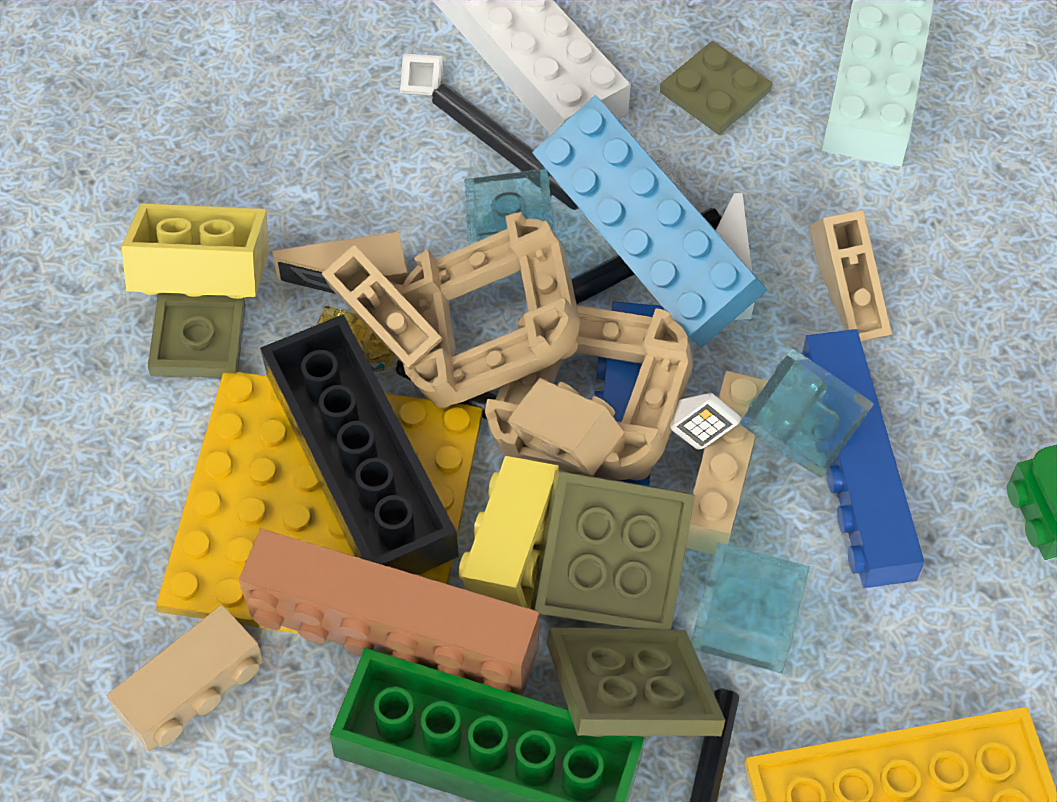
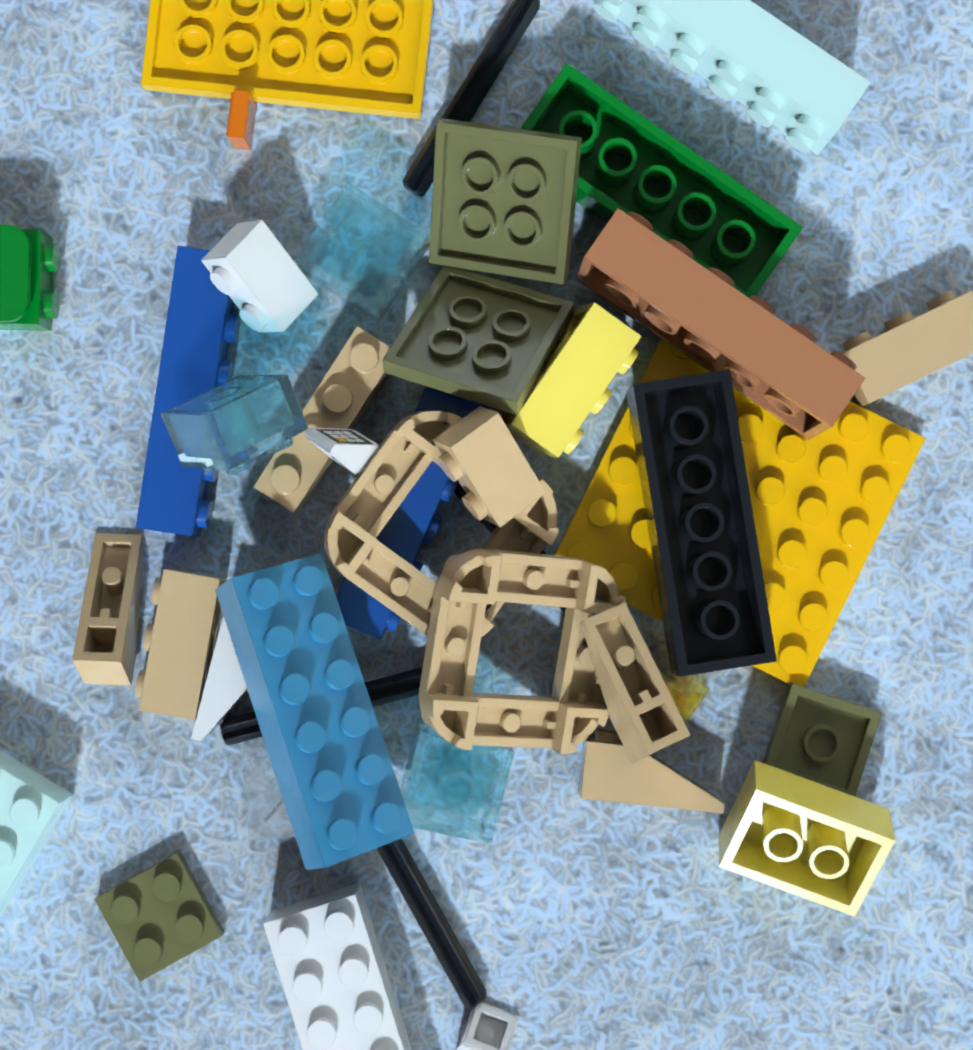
camera: 165 degrees left, 30 degrees up
(783, 267) = (179, 643): none -> tan brick
(839, 551) = (259, 277): none -> white brick
(916, 700) = (241, 119): none -> orange tile

